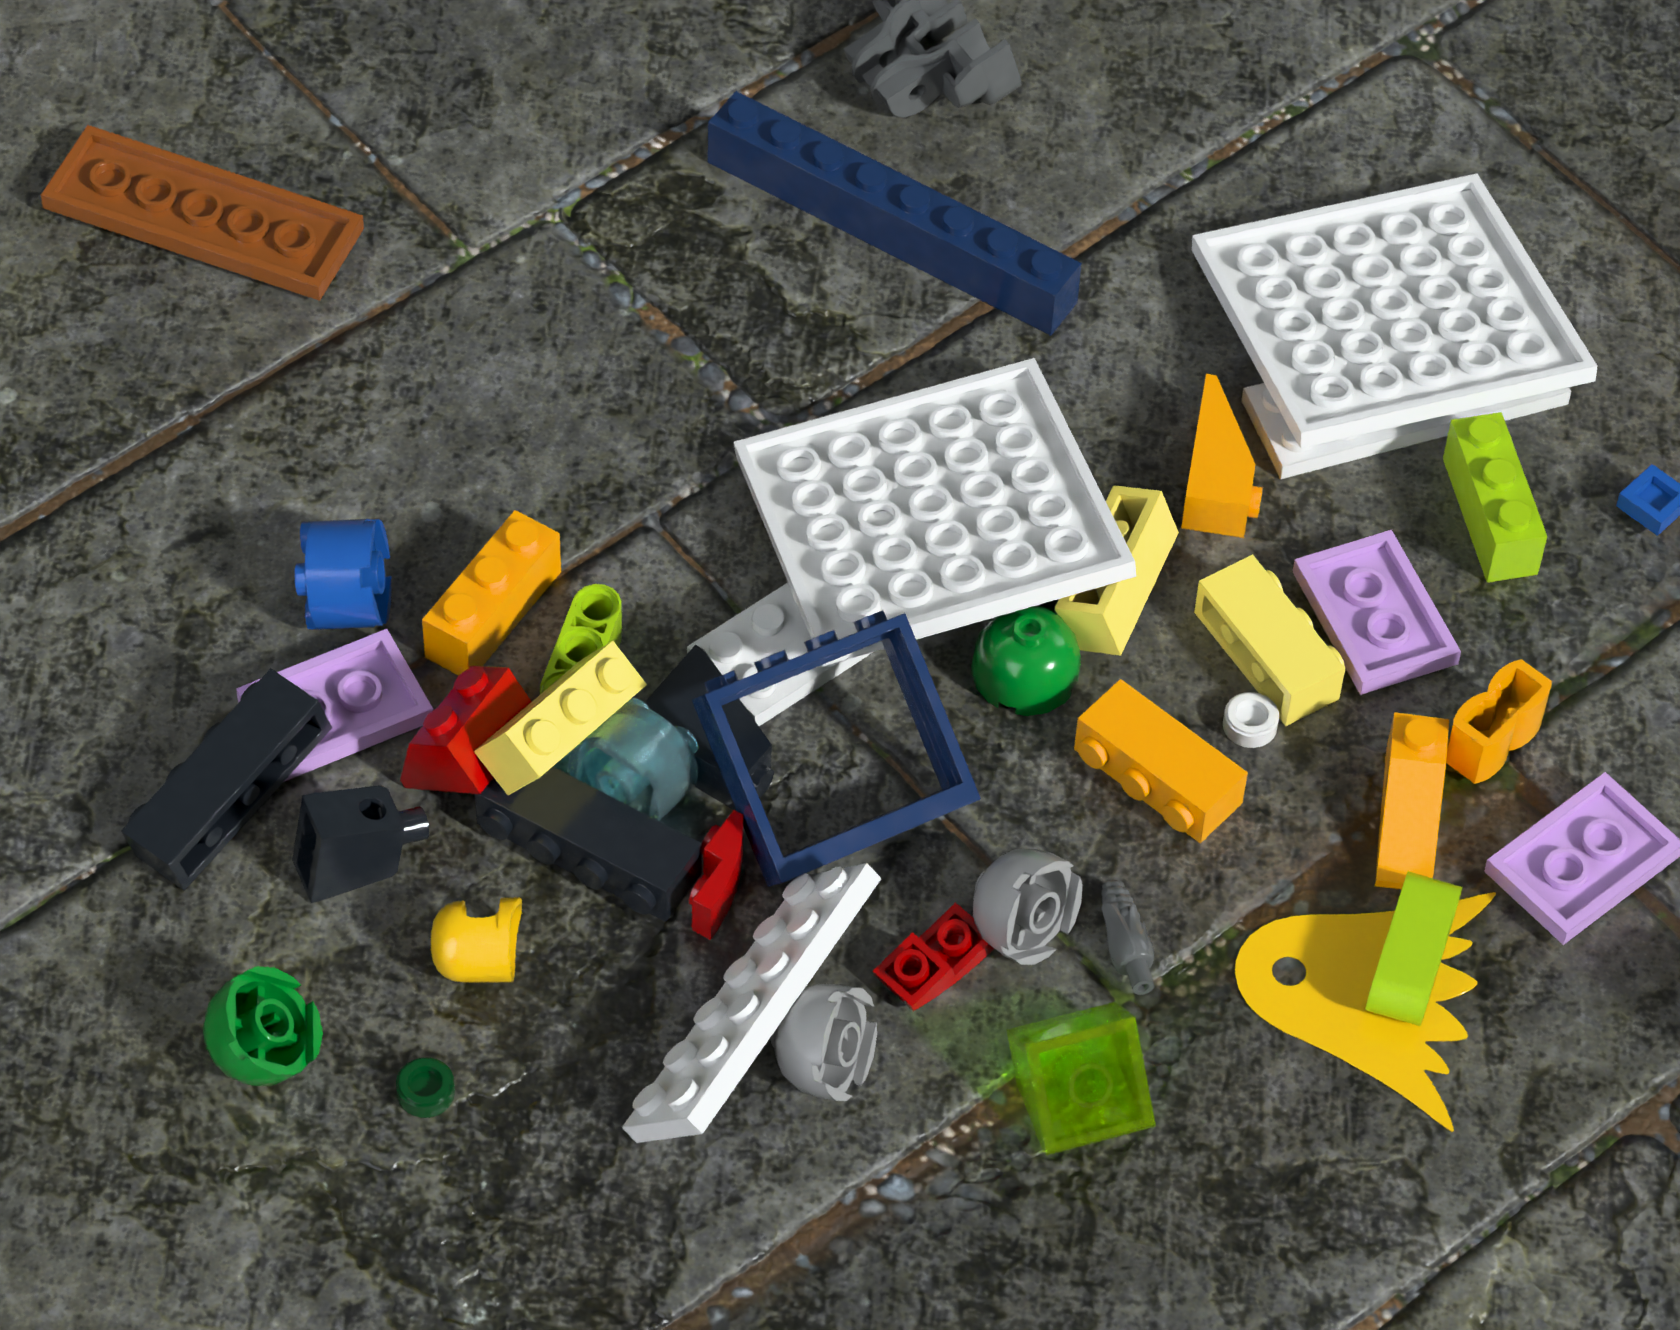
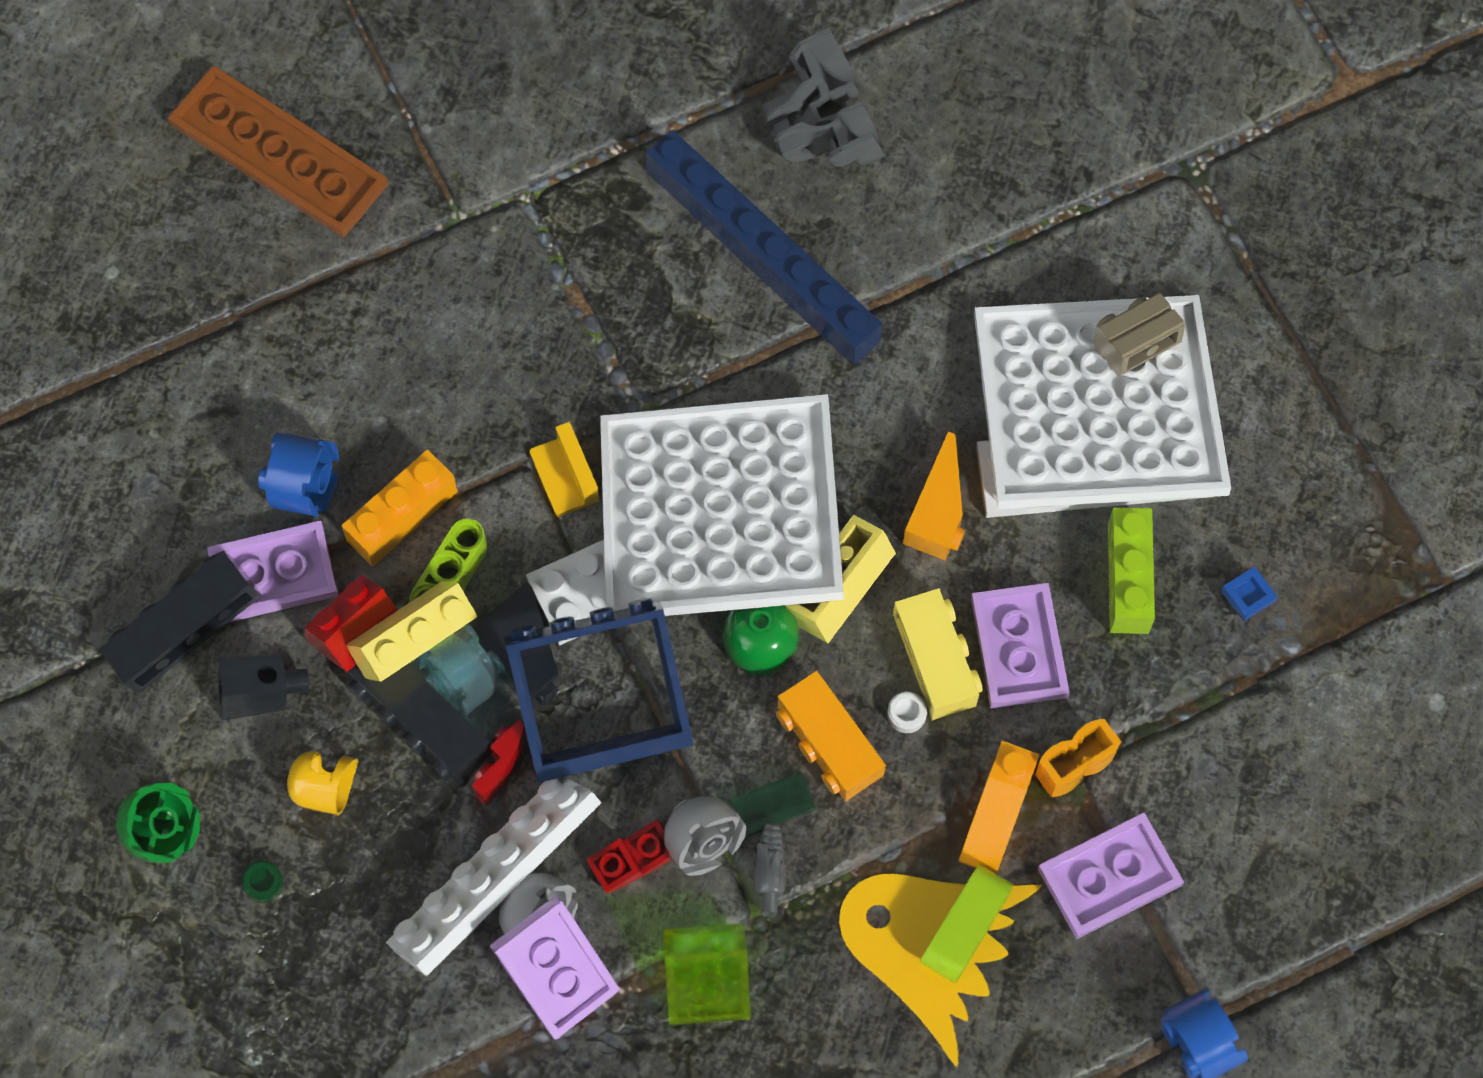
camera: 15 degrees right, 15 degrees up
(706, 517) = (565, 472): none -> yellow panel
(875, 1096) = (555, 967): none -> lavender plate
(1114, 853) = (774, 803): none -> clear green tile
(1418, 218) = (1138, 333): none -> dark tan brick

